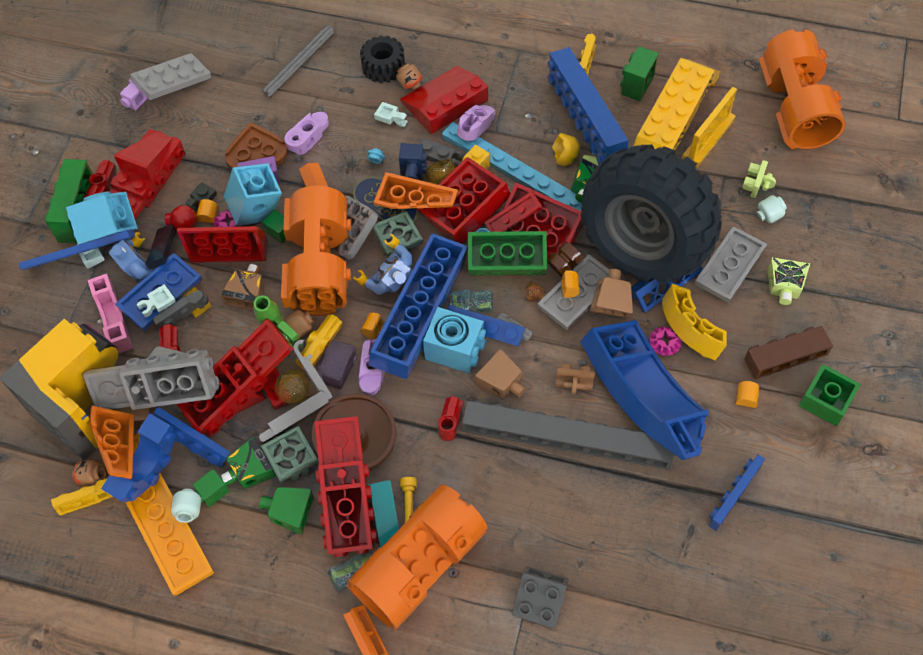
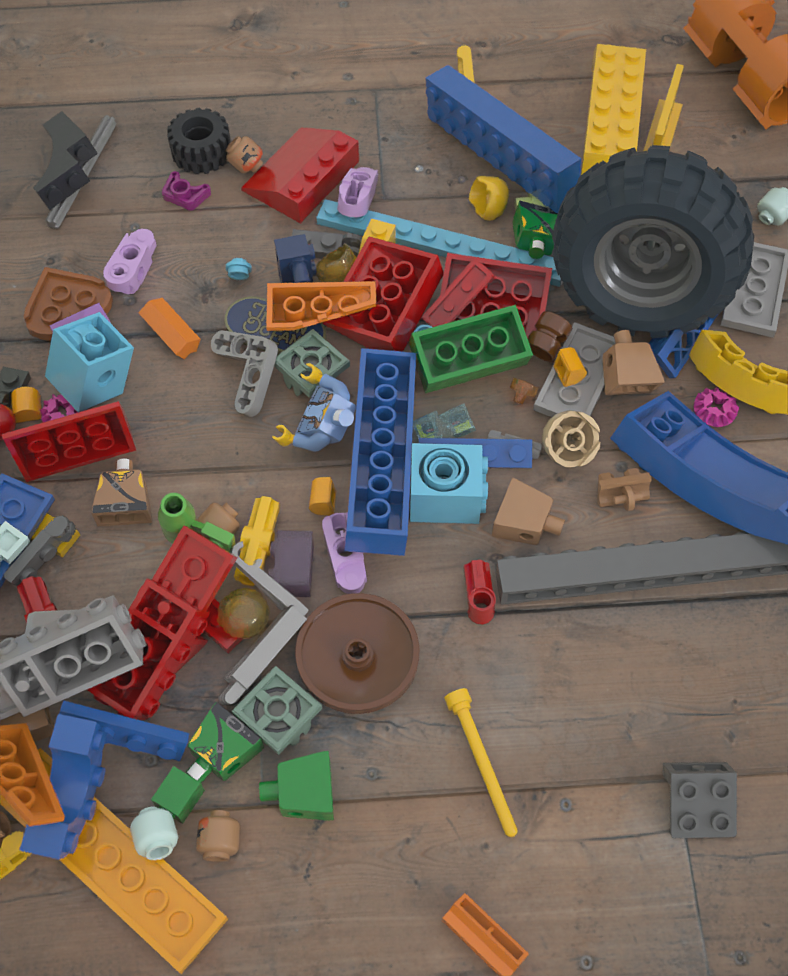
camera: 20 degrees left, 0 degrees up
(225, 521) = (218, 836): none -> medium nougat head
(274, 226) = (138, 397): green brick -> none
(284, 59) = (69, 153): none -> black arch
(316, 279) = (225, 451): orange cylinder -> none
(342, 573) = (429, 848): clear light blue slope -> none
(343, 487) = (379, 734): red wedge -> none
(359, 93) = (182, 194): none -> magenta piece
(384, 510) = (446, 756): teal slope -> none
(389, 113) = (235, 209): light aqua plate -> none
(415, 557) = (502, 840): orange cylinder -> none
(550, 334) = (571, 438): none -> tan cylinder
(638, 73) = (544, 79): green brick -> none
(765, 181) = (747, 172): yellowish green hips -> none

